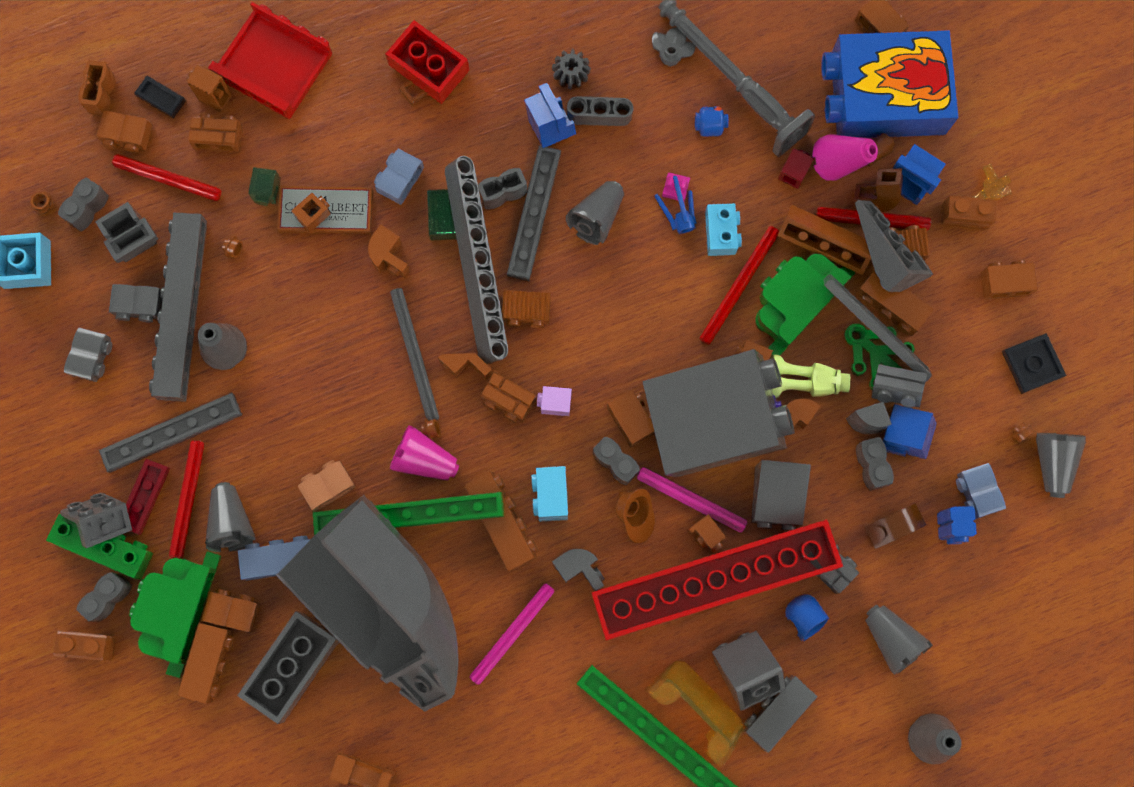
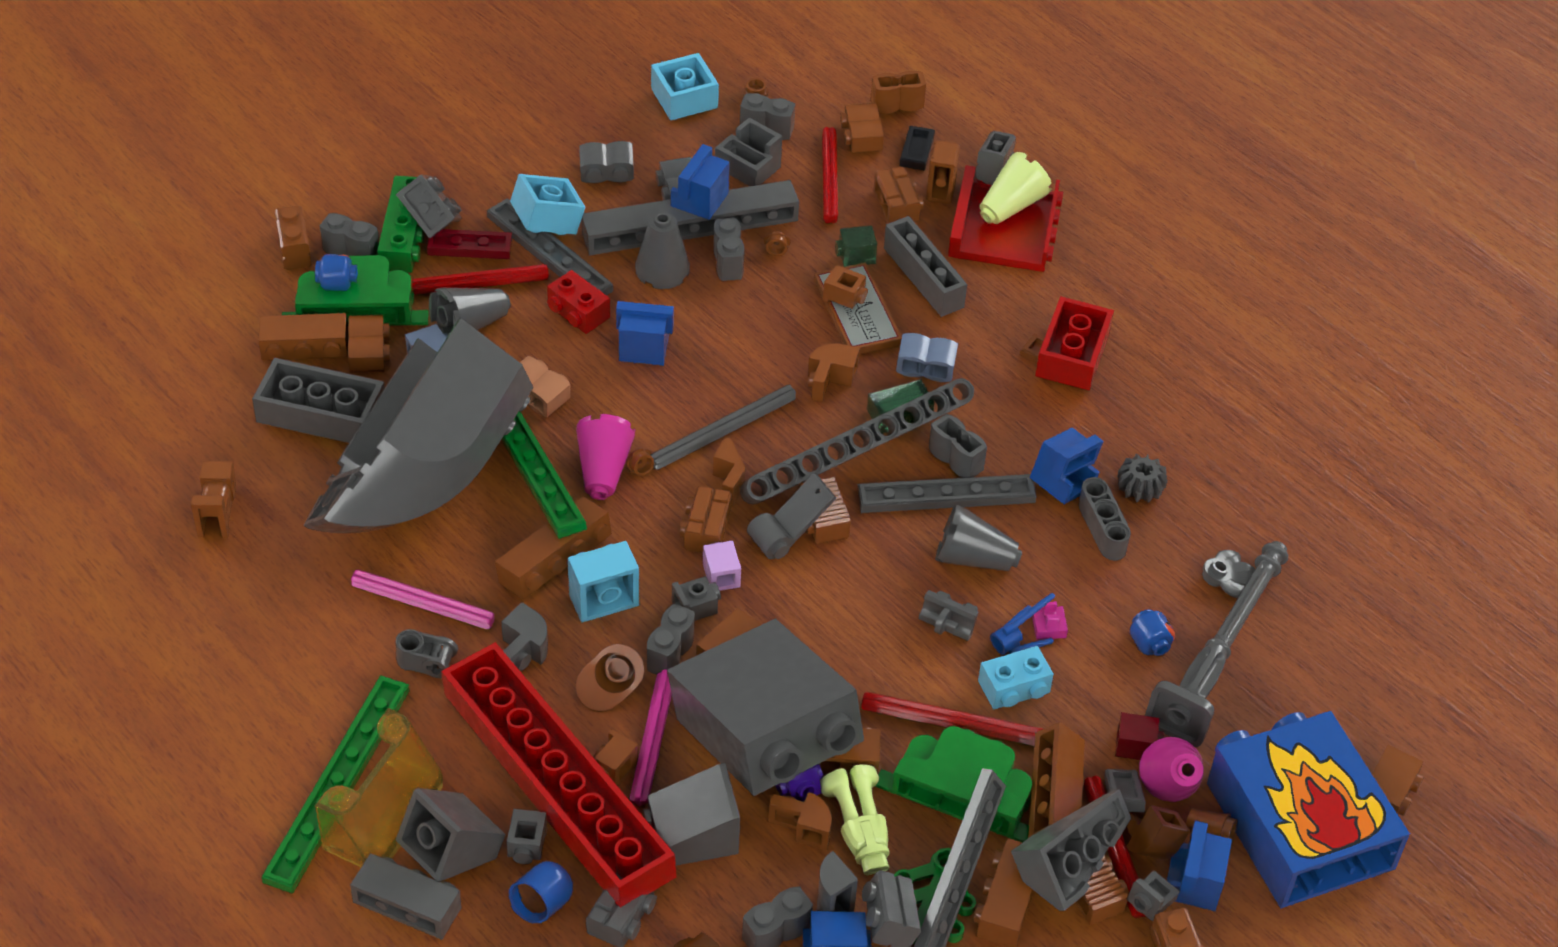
camera: 70 degrees right, 30 degrees down
(130, 420) = (547, 204): none -> medium azure brick
(160, 621) = (335, 272): none -> blue head
(164, 288) = (702, 184): none -> blue plate
(207, 40) = (994, 155): none -> dark grey brick
(226, 288) = (728, 249): none -> dark grey brick
(245, 427) = (578, 301): none -> red brick
(252, 41) = (1015, 189): none -> yellowish green cone
(304, 385) = (643, 331): none -> blue plate
(306, 142) = (925, 266): none -> dark grey brick
(533, 335) = (780, 531): none -> dark grey door
(570, 643) = (424, 652): none -> dark grey piece
(580, 438) = (697, 596): none -> dark grey brick
(653, 256) = (948, 615): none -> dark grey hips
(745, 614) = (526, 835): none -> dark grey brick
(838, 195) = (1129, 785): none -> dark grey tile
(931, 212) = (1152, 895): none -> dark grey bracket

